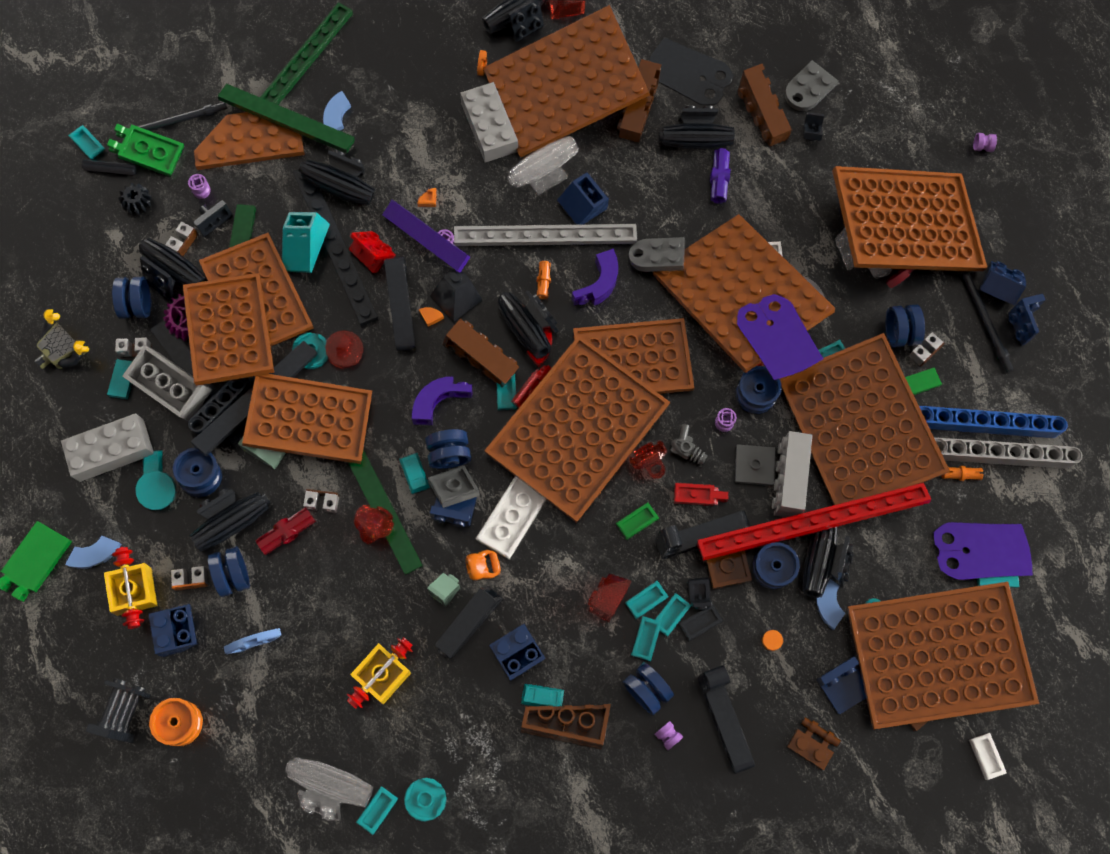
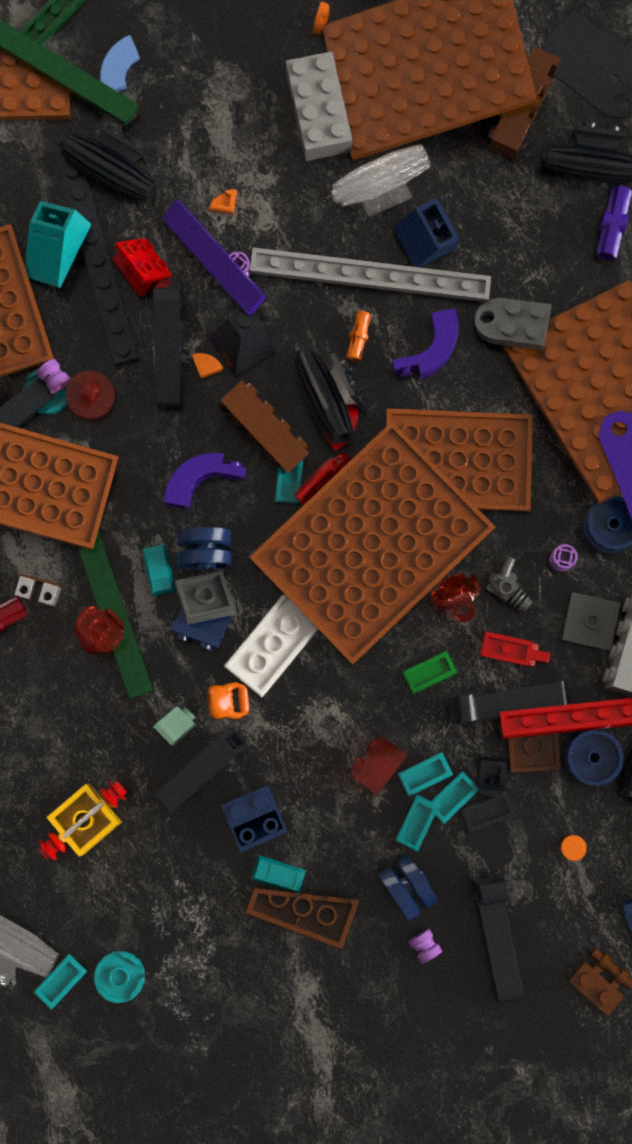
camera: 10 degrees right, 10 degrees up
(314, 337) = (53, 376): none -> medium lavender wheel

